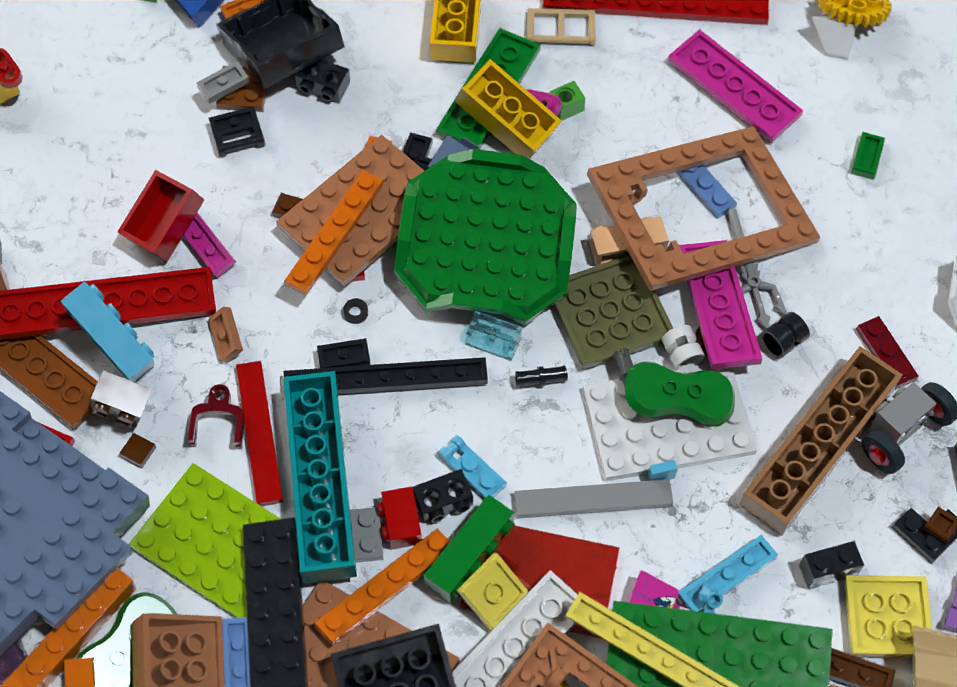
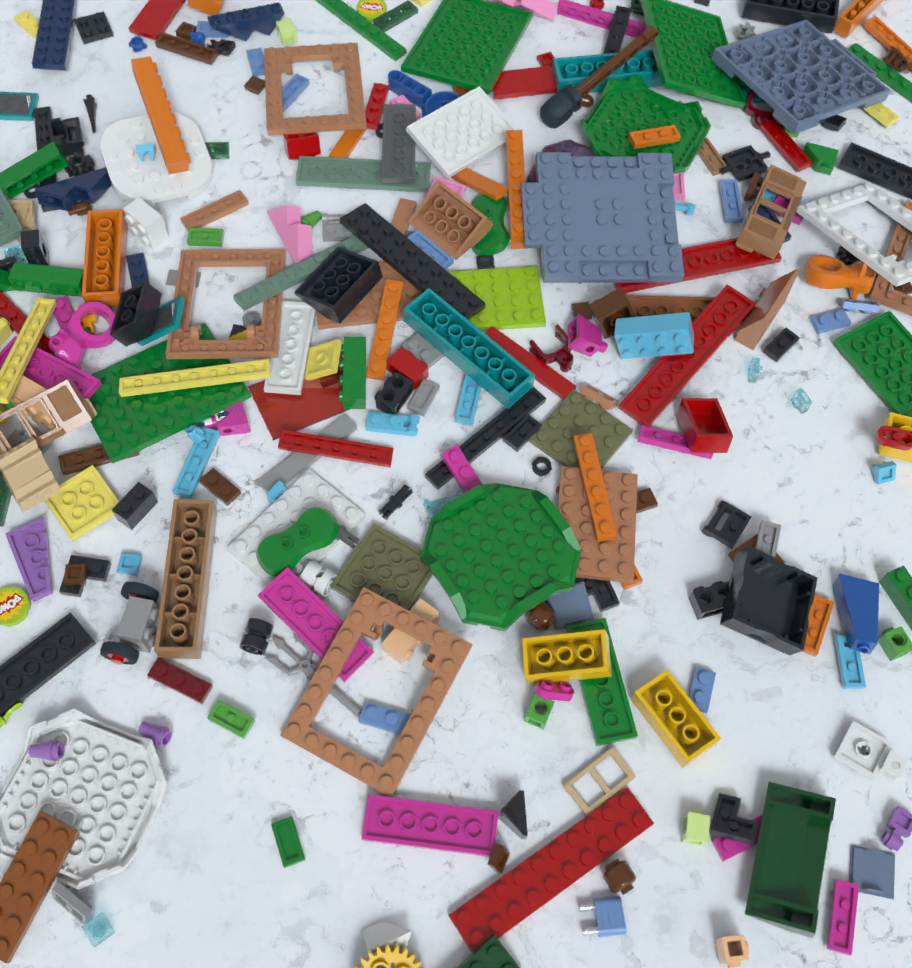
camera: 140 degrees right, 0 degrees up
(30, 184) = (801, 401): none -> clear light blue plate
(34, 69) = (884, 472): none -> medium azure tile
(37, 246) = (754, 370): none -> clear light blue plate
(175, 402) = (585, 337): none -> dark pink torso
(183, 598) = (485, 262): none -> black tile
(279, 321) = (579, 417): none -> olive plate
(369, 430) = (468, 402): none -> medium azure plate
(407, 29) = (702, 688): none -> medium blue plate
(411, 473) = (423, 397): none -> light grey tile
(447, 350) = (460, 468): none -> dark pink plate
(560, 478) = (335, 448): none -> red tile
(656, 44) = (514, 815): none -> black slope
(695, 25) = (498, 858): none -> reddish brown tile
(718, 530) = (220, 487): none -> reddish brown plate
(858, 281) = (231, 719): none -> bright green plate
(872, 510) = (129, 563): none -> medium azure tile
(940, 317) = (159, 734): none -> medium lavender cone

